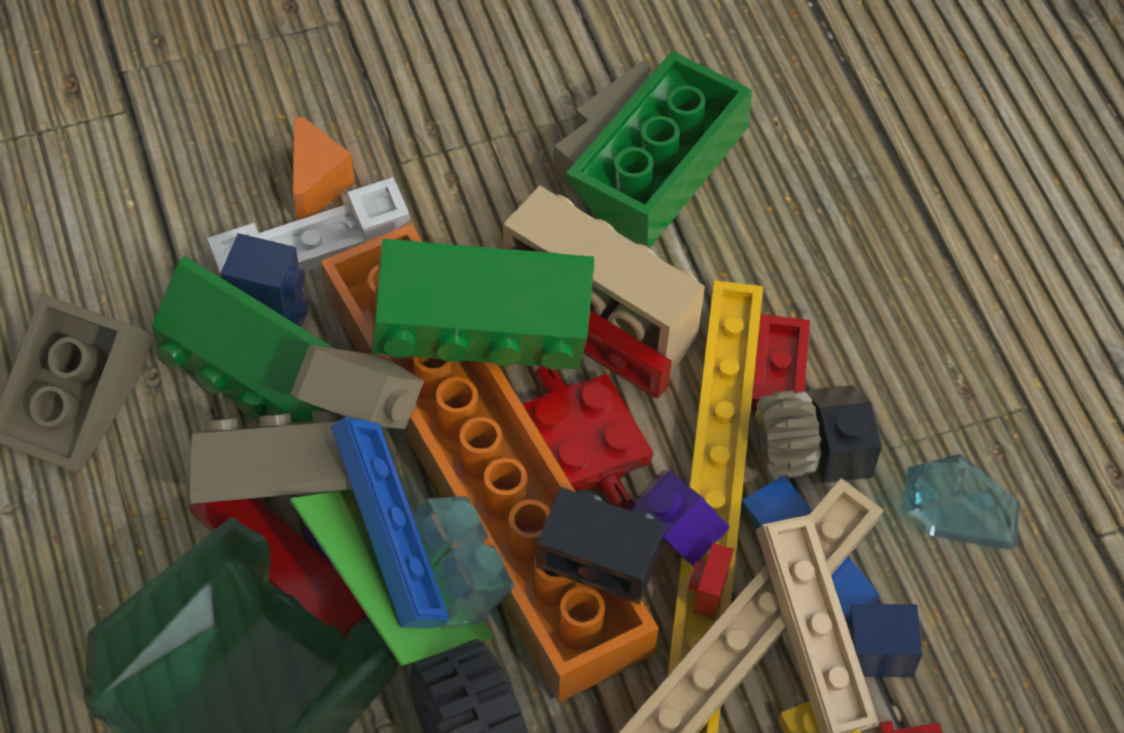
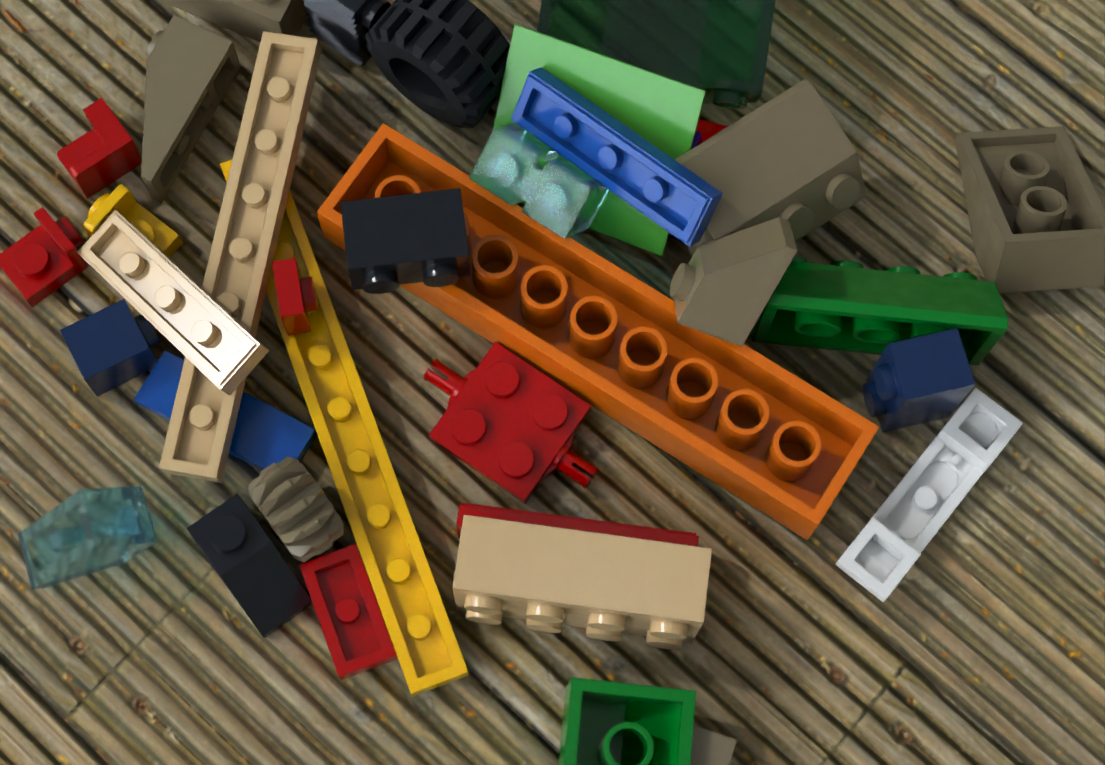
camera: 150 degrees right, 15 degrees up
(319, 169) = (980, 581): orange slope -> none
(482, 304) = (667, 415): green slope -> none
(688, 518) = (368, 352): dark purple slope -> none

